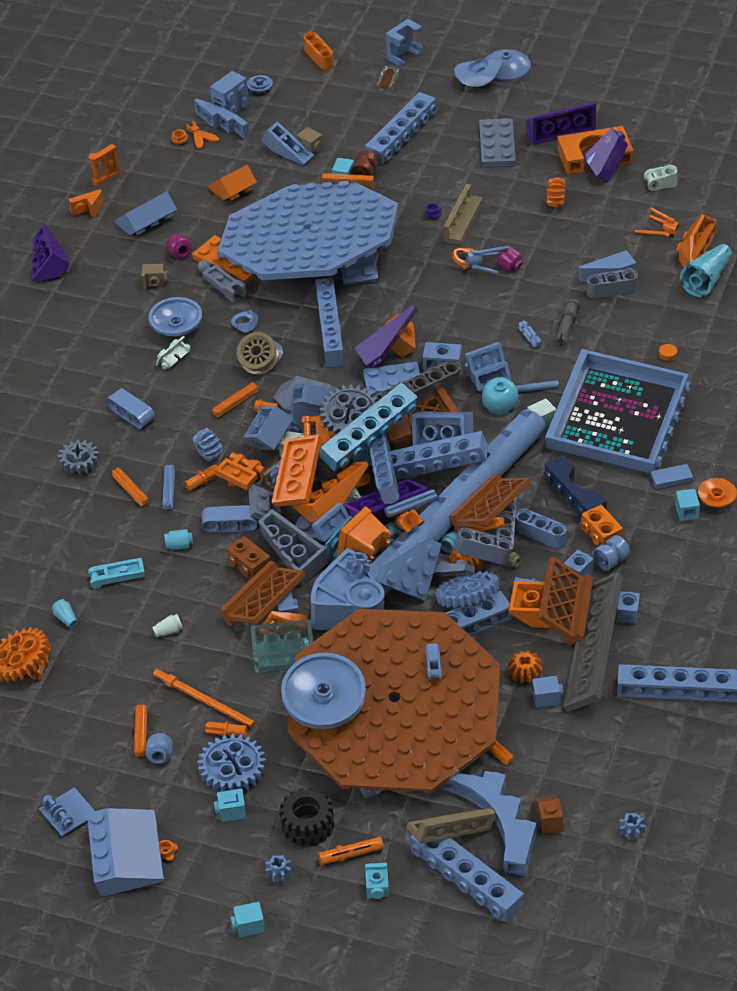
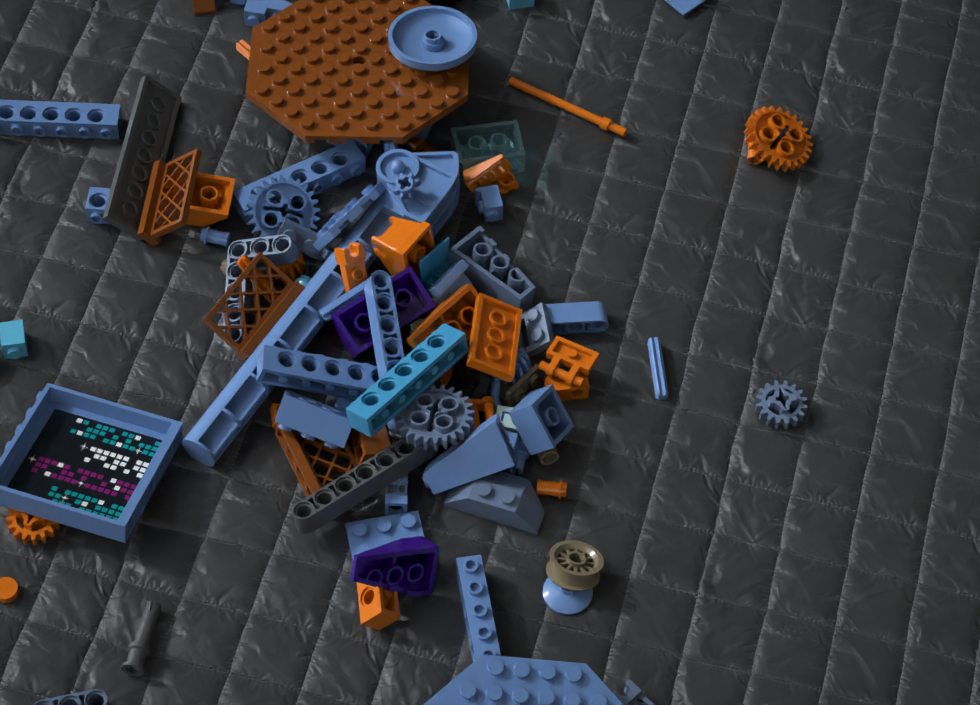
camera: 170 degrees right, 10 degrees up
(64, 612) = (743, 197): medium azure cone -> none
(116, 572) = (695, 249): medium azure plate -> none
(130, 408) = (732, 482): medium blue beam -> none
(130, 487) = (706, 368): orange axle -> none
(140, 730) = (628, 72): orange axle -> none
(159, 748) = (603, 46): medium blue head -> none
(167, 357) = (700, 572): light aqua hinge -> none
(168, 626) = (620, 182): light aqua cone -> none
(175, 316) = (706, 617): medium blue dish -> none
(178, 540) = (630, 288): medium azure brick -> none
(201, 478) = (617, 378): orange axle -> none
(207, 444) = (617, 413): medium blue gear -> none
(221, 772) = (526, 33): medium blue gear -> none
(225, 729) = (537, 71): orange axle -> none
(234, 400) = (595, 504): orange axle -> none
(245, 327) = (593, 652): medium blue piece -> none
(247, 557) = (542, 263): dark orange brick -> none
(253, 594) = (534, 212): dark orange fence -> none
(433, 661) = (317, 78): medium blue bar -> none
(439, 353) = (308, 561): medium blue brick -> none
(486, 364) = (259, 545): medium blue piece -> none
(500, 396) = (240, 501): medium azure cylinder -> none
(524, 666) = (220, 136): orange gear -> none
(530, 334) = (196, 621): medium blue axle -> none
(537, 386) = (198, 529): medium blue bar -> none
(540, 528) = (185, 300): medium blue beam -> none
(545, 410) = (186, 473): light aqua brick -> none
(546, 691) = (197, 109): medium blue brick -> none
(561, 474) = (135, 340): dark blue arch -> none
(580, 563) = (153, 247): medium blue brick -> none
(600, 525) = (118, 309): orange brick -> none
(611, 553) = (112, 269): medium blue wheel -> none
(671, 476) = (24, 388): medium blue tile -> none

